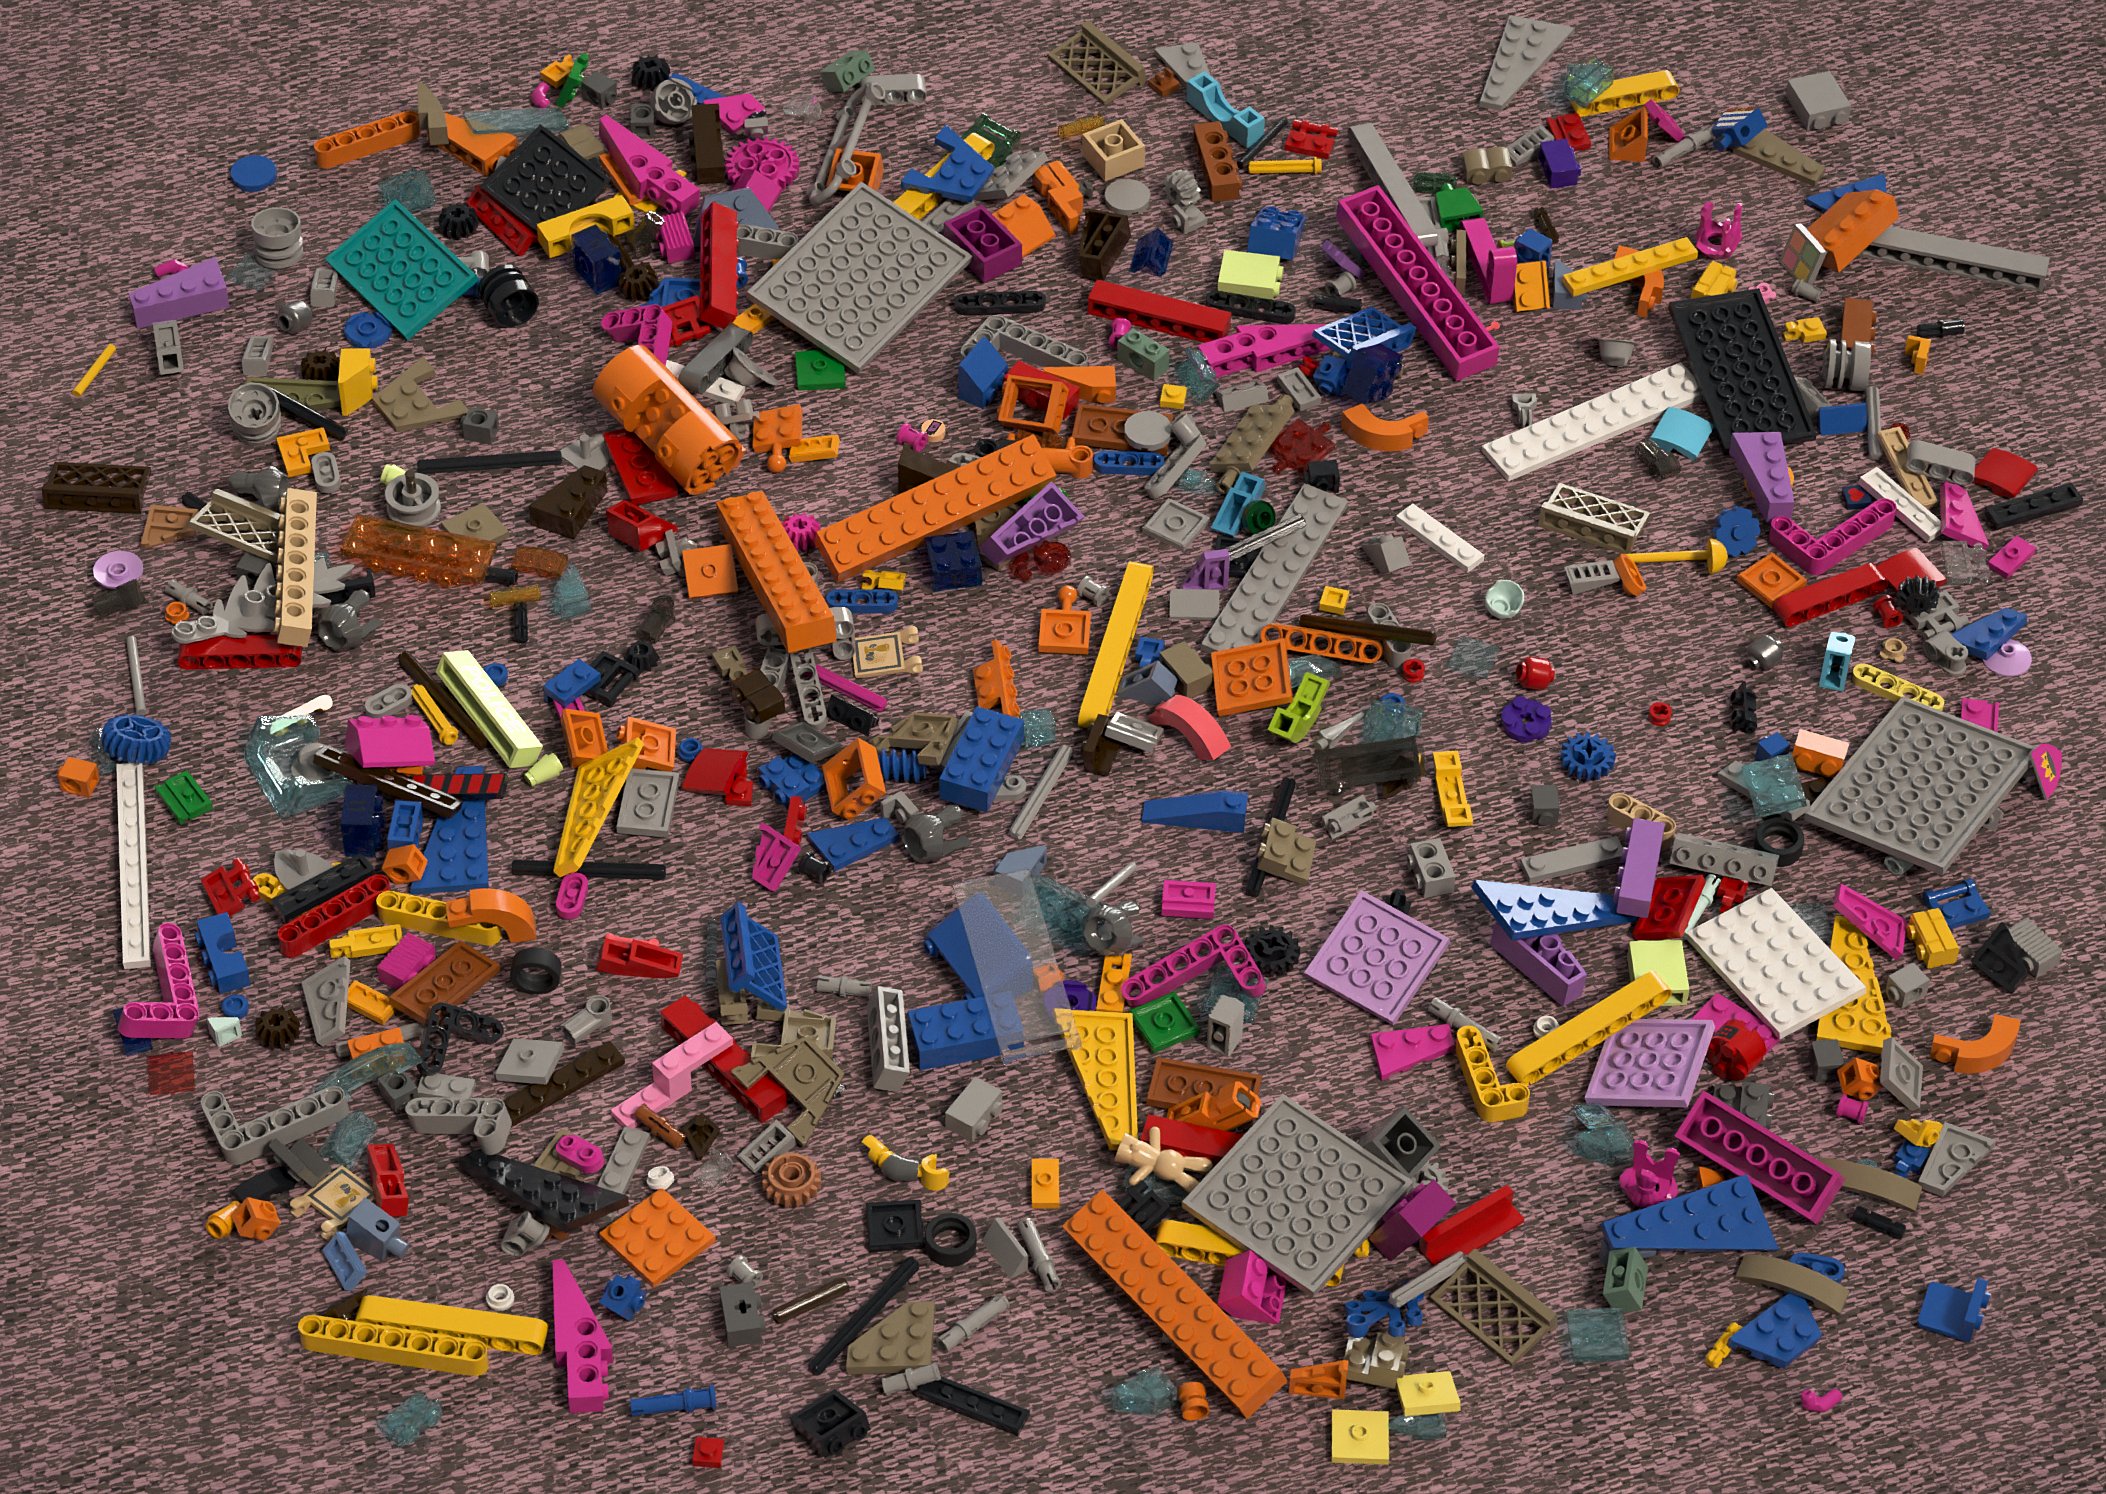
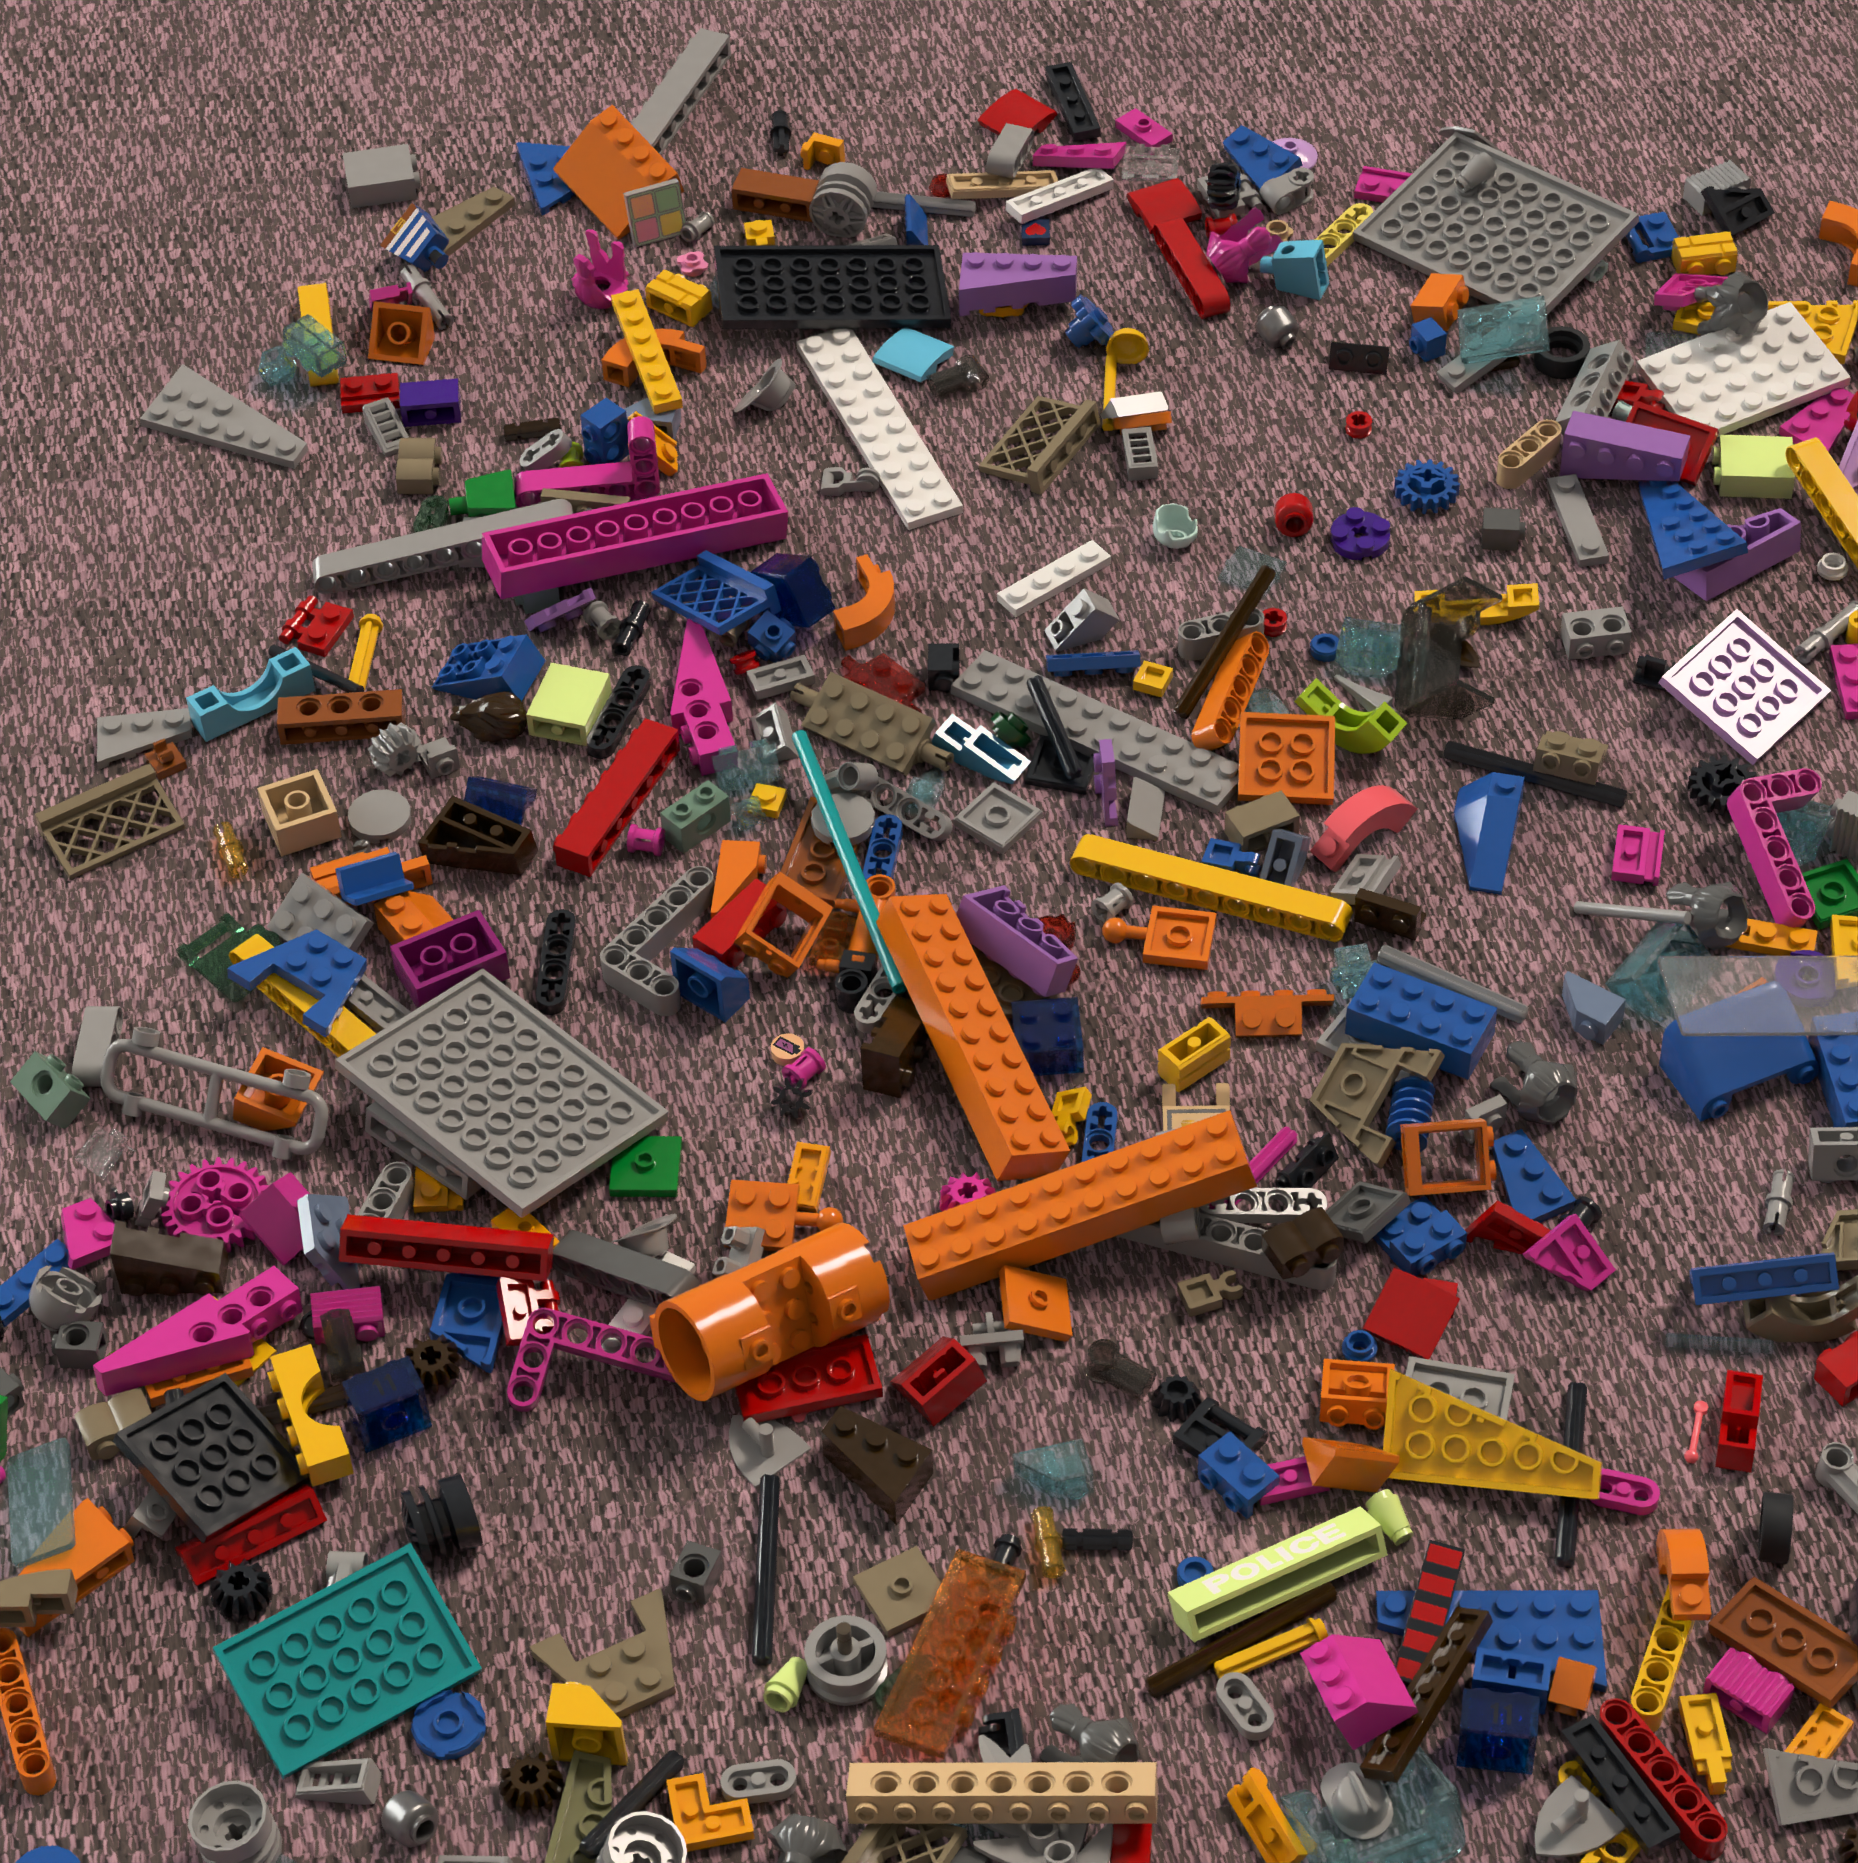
camera: 80 degrees left, 0 degrees up
(410, 189) = (162, 1660): clear light blue slope -> none
(539, 560) = (985, 1508): clear orange slope -> none
(882, 431) = (796, 1088): none -> black gear
(942, 639) = (1194, 1054): none -> yellow brick
(1041, 187) = (372, 879): none -> blue panel
(1132, 421) = (846, 855): none -> teal piece
(1154, 384) = (752, 805): none -> clear light blue plate
(1227, 236) = (492, 717): none -> dark brown hair
(1345, 563) = (1093, 662): none -> blue plate
(1348, 816) = (1519, 705): light grey hinge -> none
(1511, 229) = (546, 451): none -> light grey beam
(1637, 565) = (1135, 405): none -> slope
(1771, 579) = (1161, 311): orange plate -> none
(1819, 929) = (1737, 312): none -> dark grey piece
(1822, 554) = (1124, 264): dark pink beam -> none
(1847, 617) = (1236, 250): none -> dark pink piece
(1907, 985) = (1774, 278): light grey brick -> none
(1977, 758) = (1476, 171): none -> light grey cone

